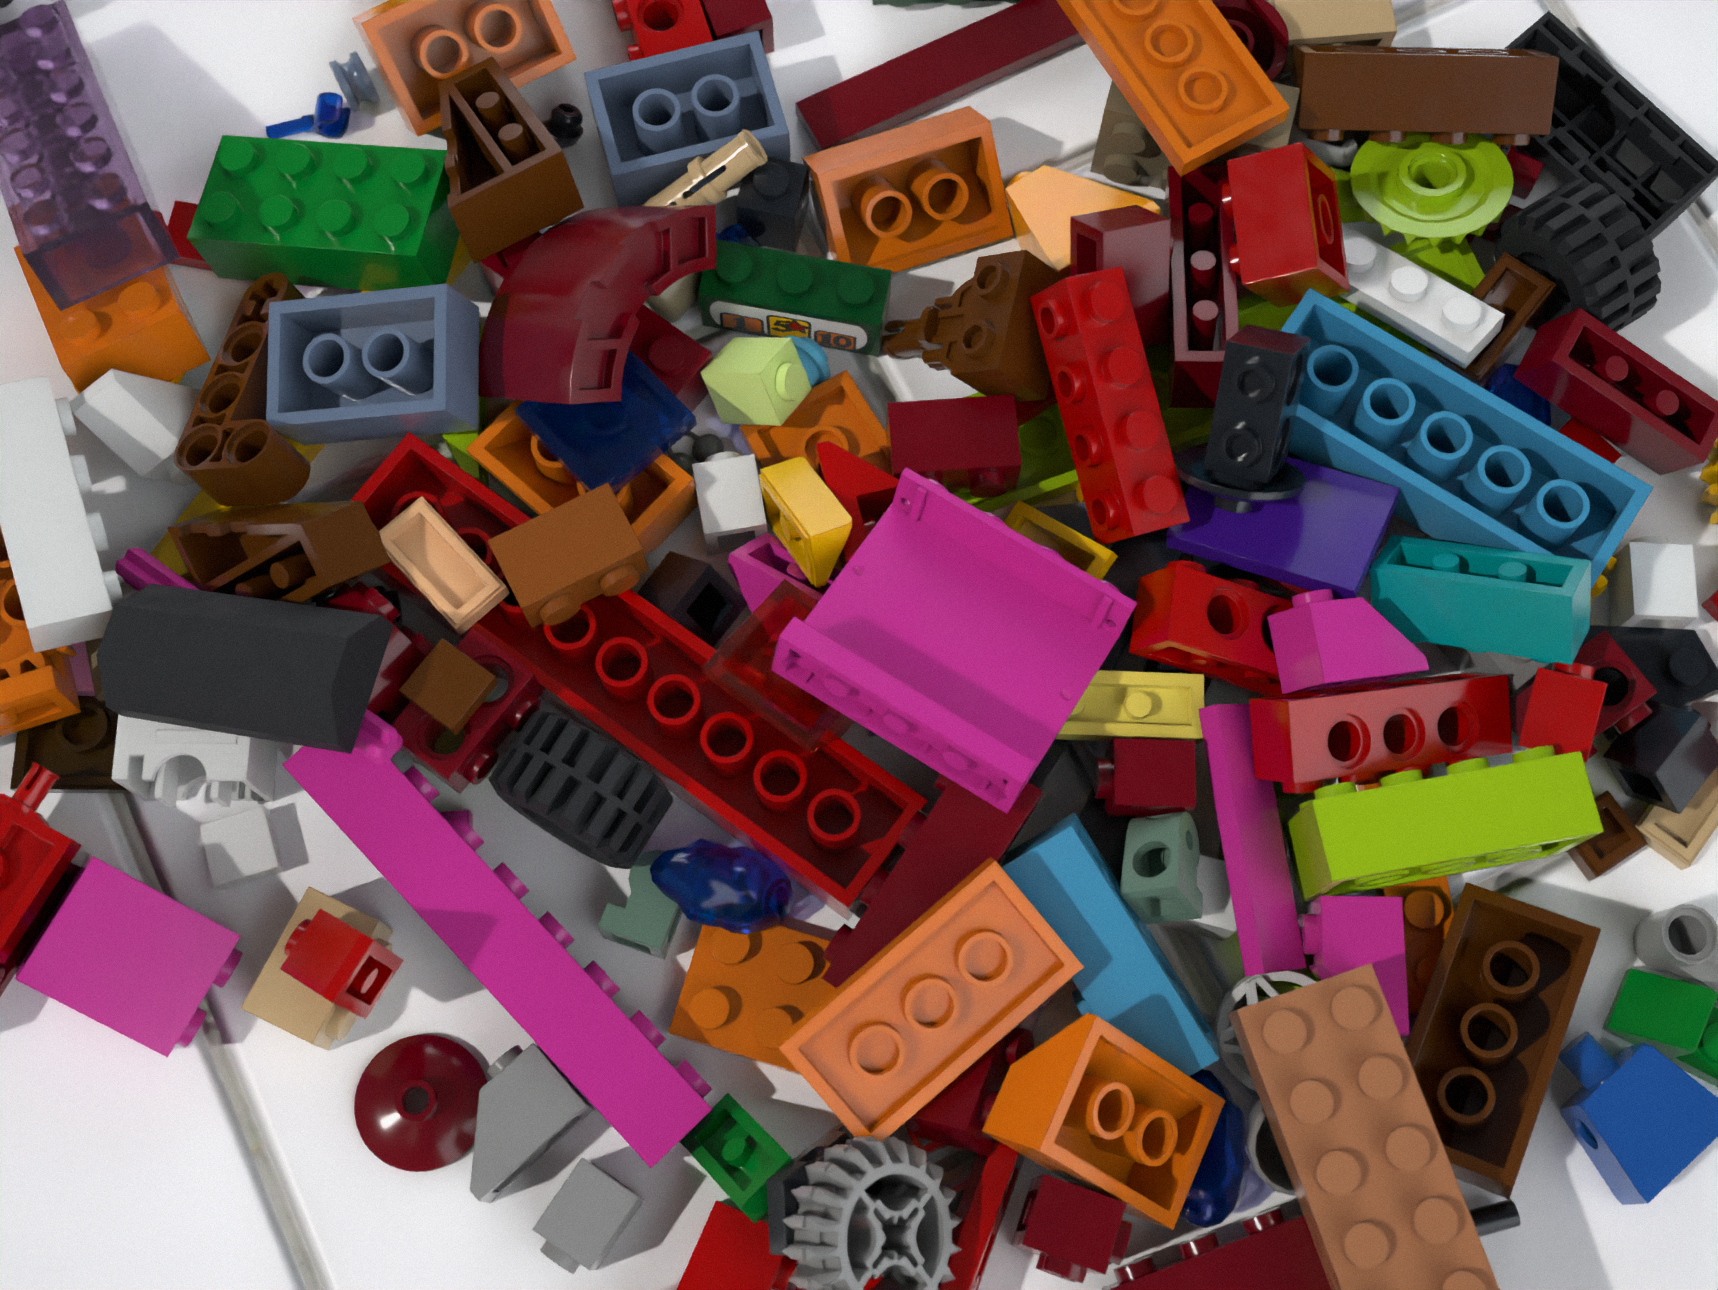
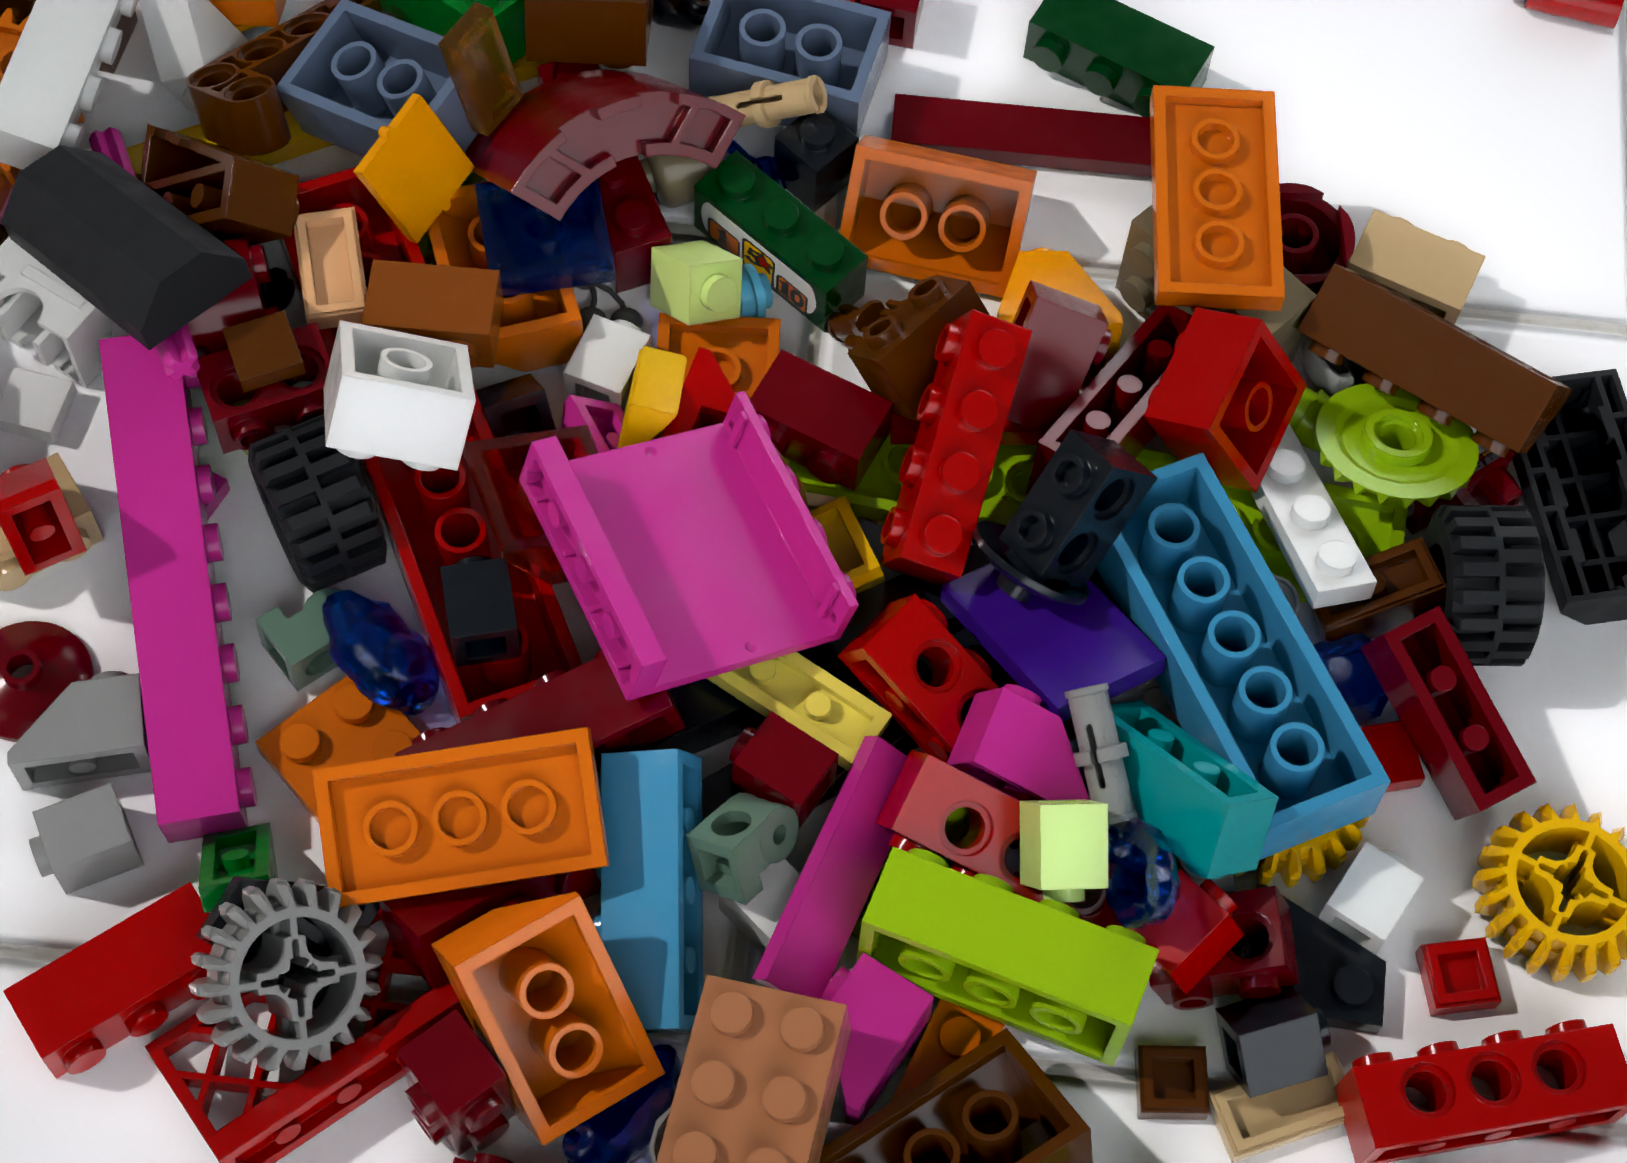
camera: 30 degrees right, 10 degrees down
(459, 300) = (481, 69): none -> clear orange tile
(459, 430) = (414, 168): none -> light orange piece
(610, 658) = (398, 397): none -> white brick
(807, 803) = (480, 610): none -> black brick
(1439, 707) = (1064, 847): none -> yellowish green brick
(1440, 638) = (1101, 751): none -> light grey pin
(1517, 695) = (1141, 875): none -> clear blue arm

